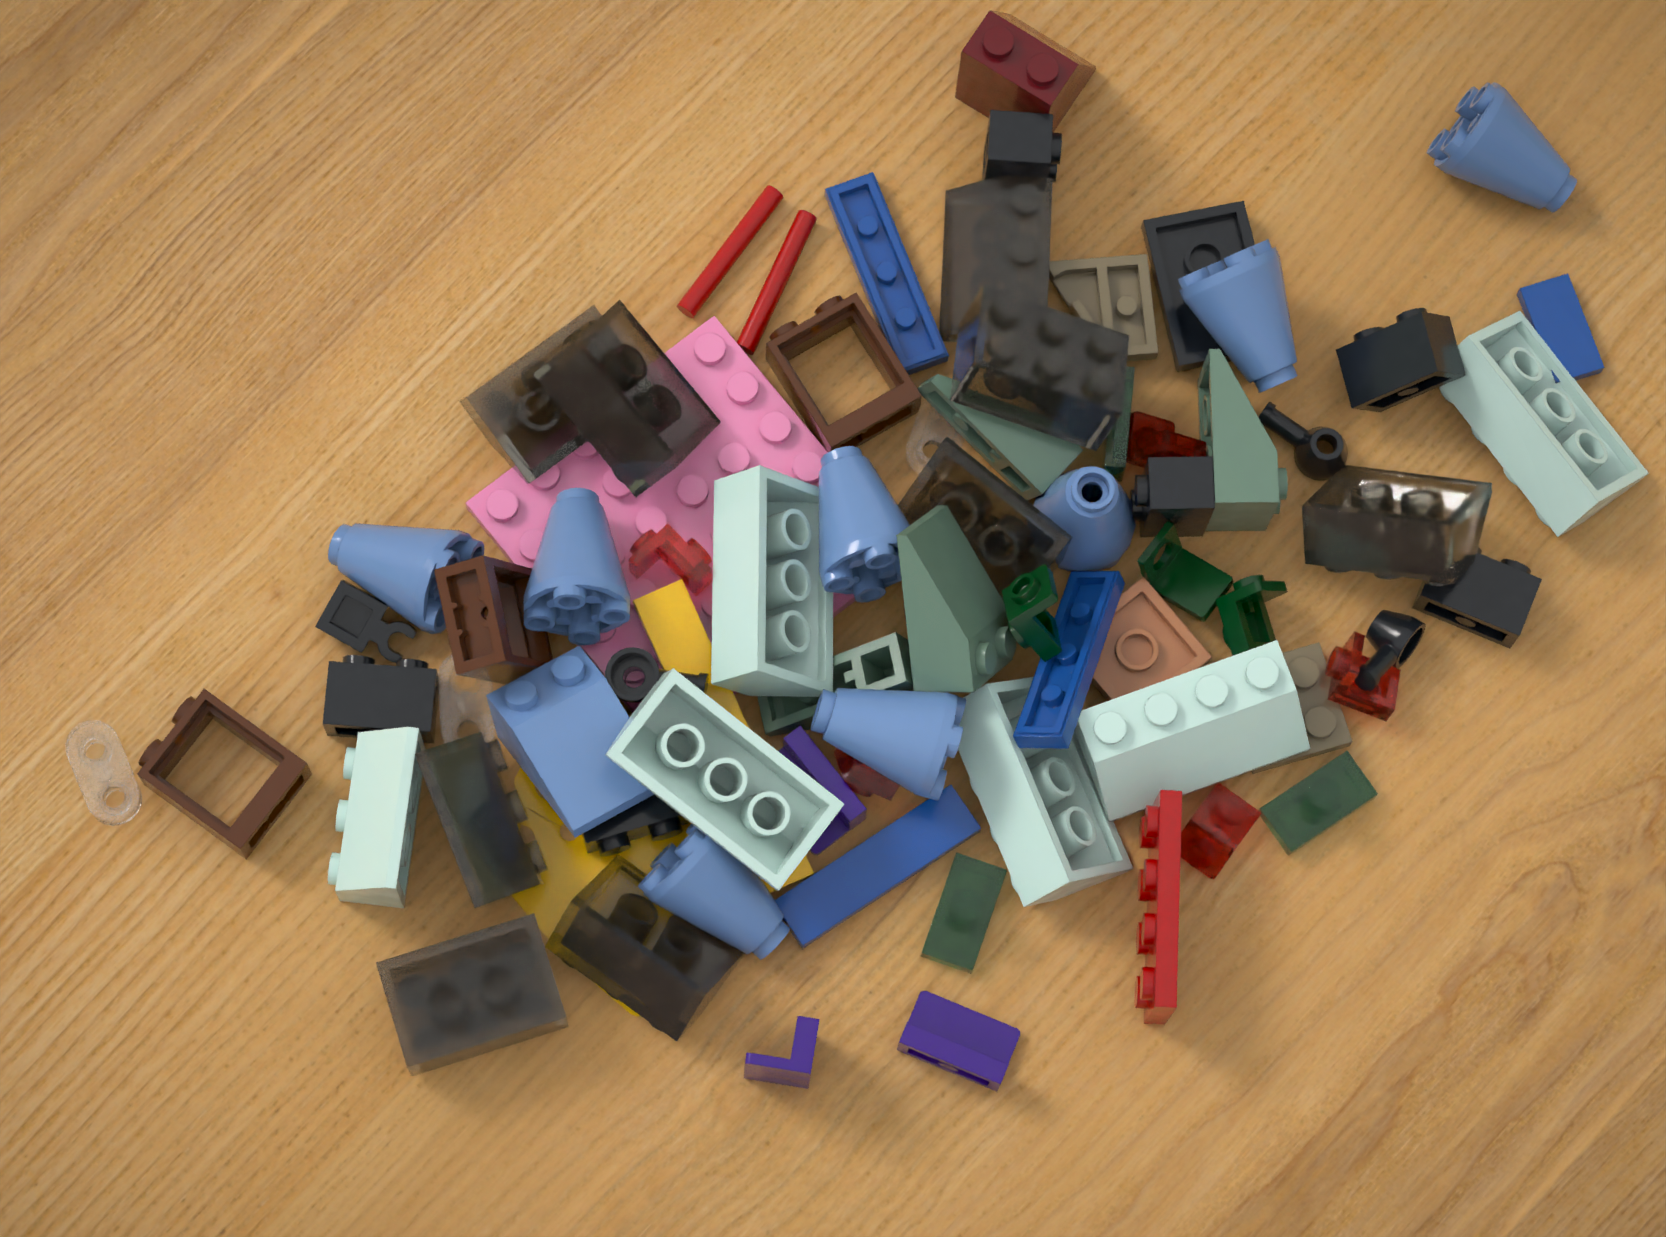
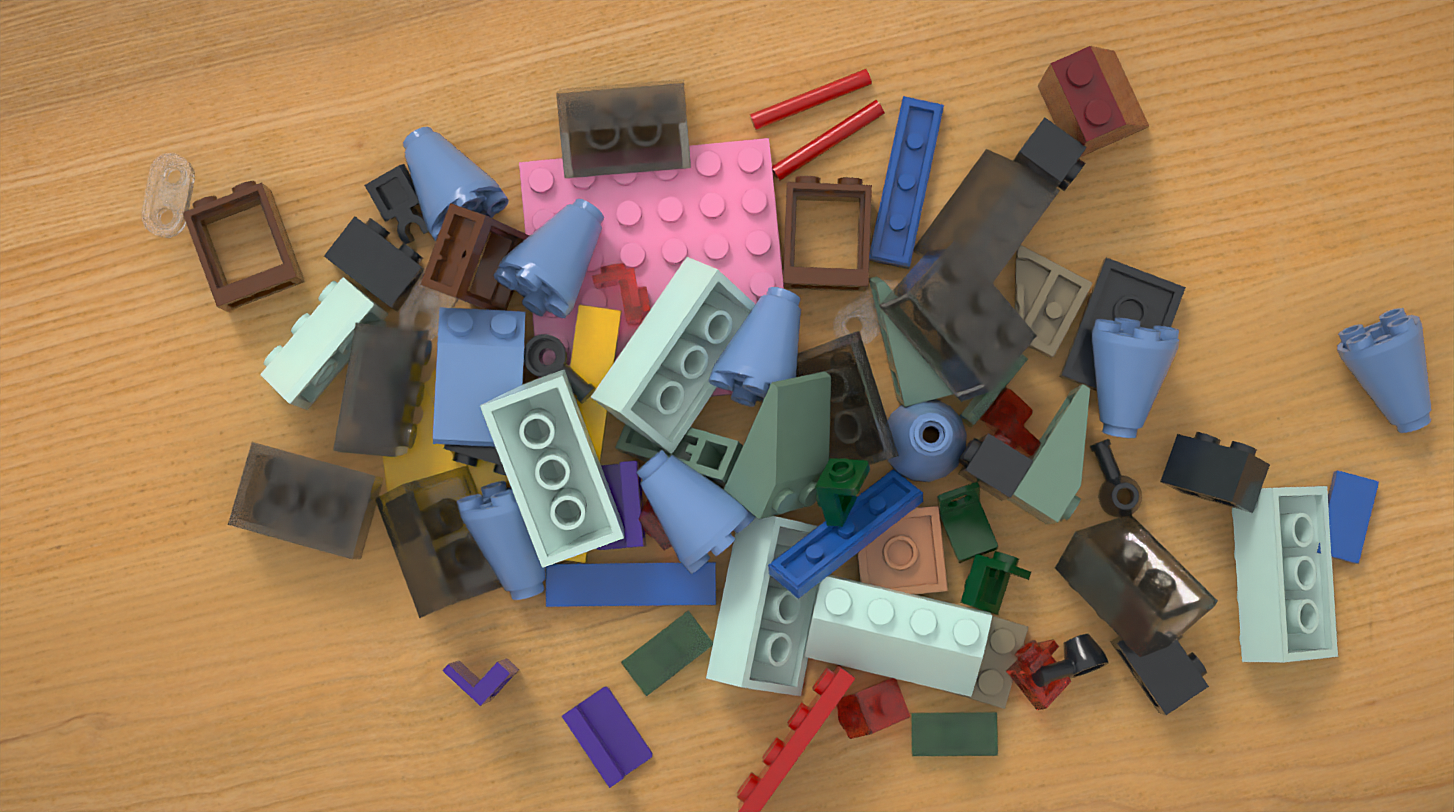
camera: 50 degrees right, 10 degrees up
(627, 399) = (664, 163): clear smoke slope -> none

